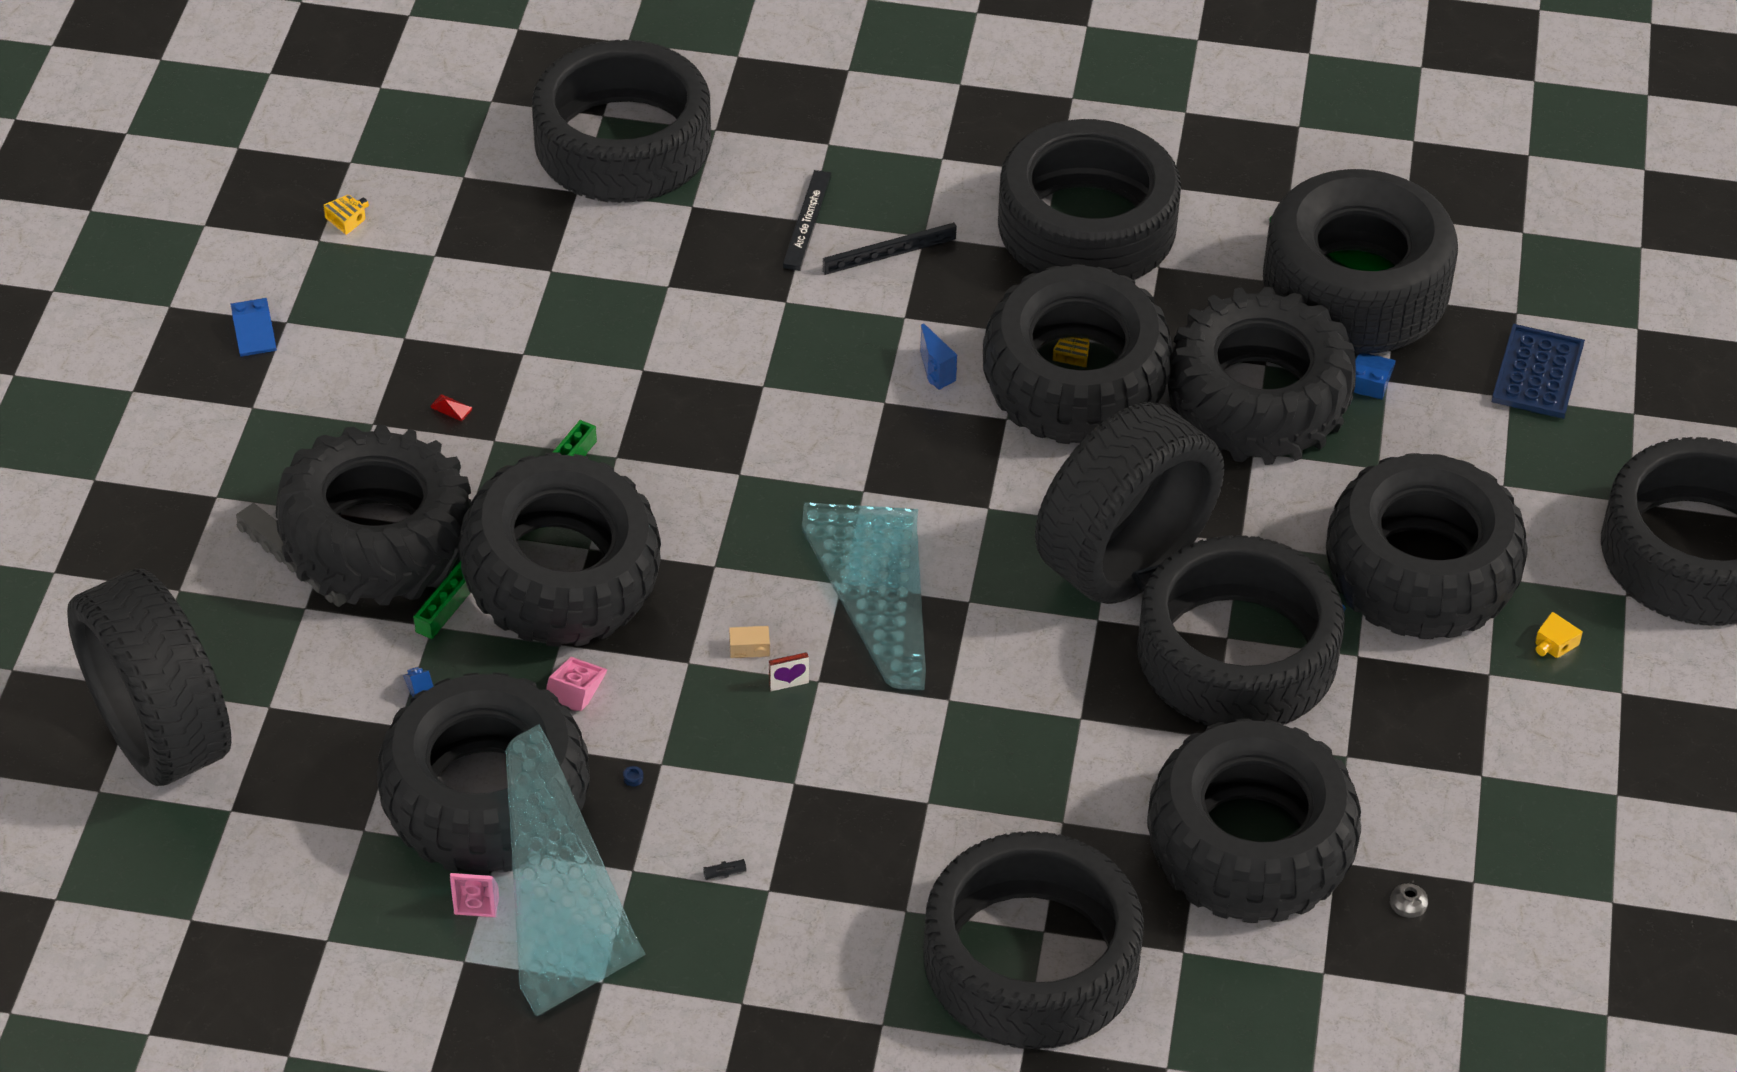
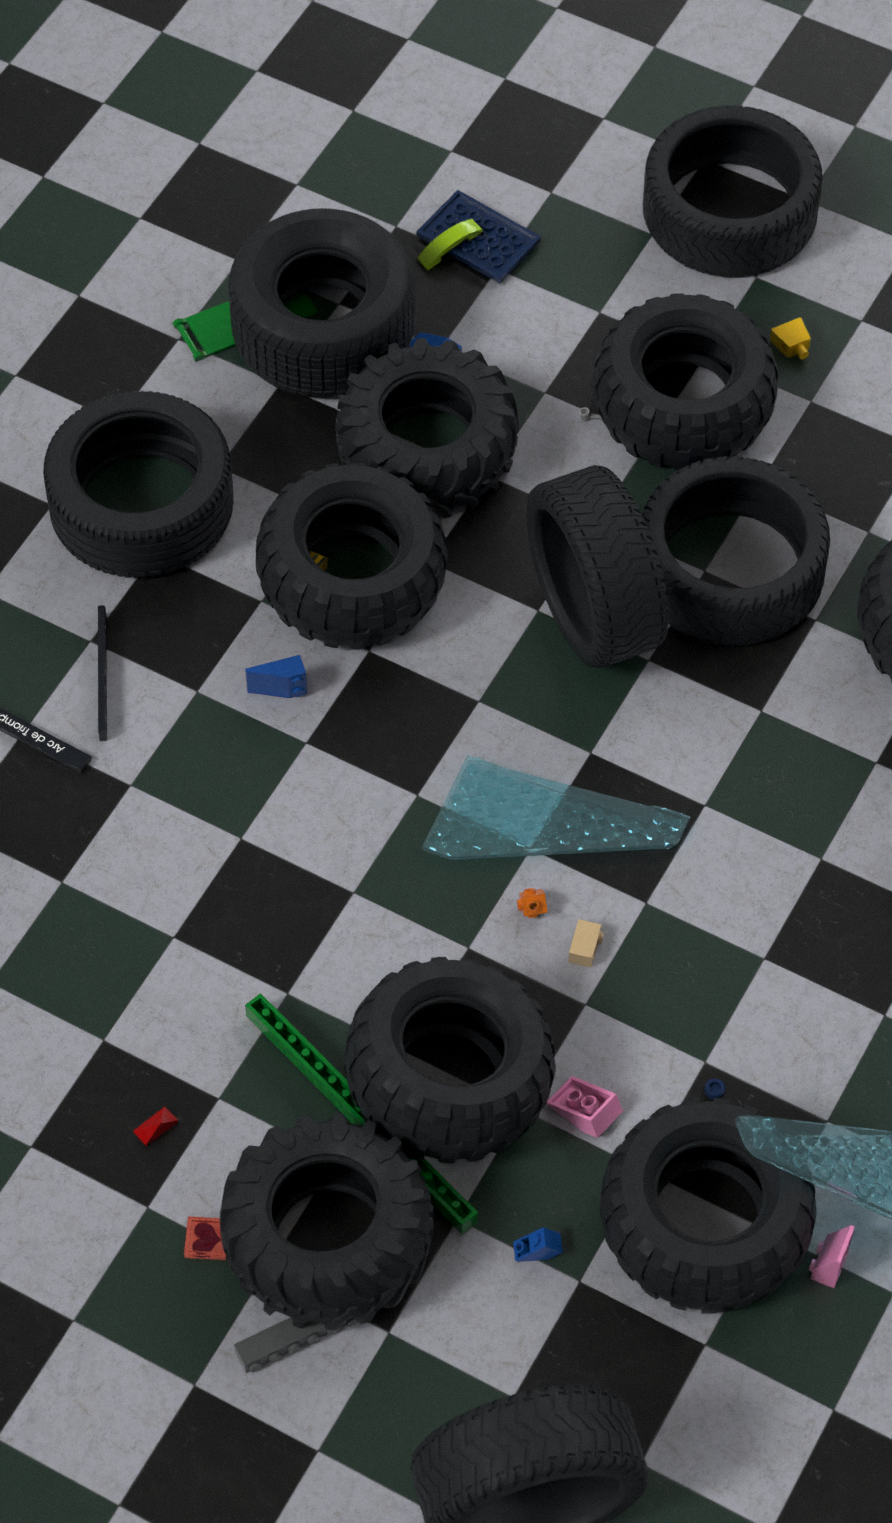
camera: 70 degrees left, 10 degrees up
(738, 866) = (853, 1042): black pin -> none
(775, 592) = (532, 902): none -> orange brick
(788, 671) = (642, 919): tile -> none
(1514, 345) = (446, 241): none -> lime slope

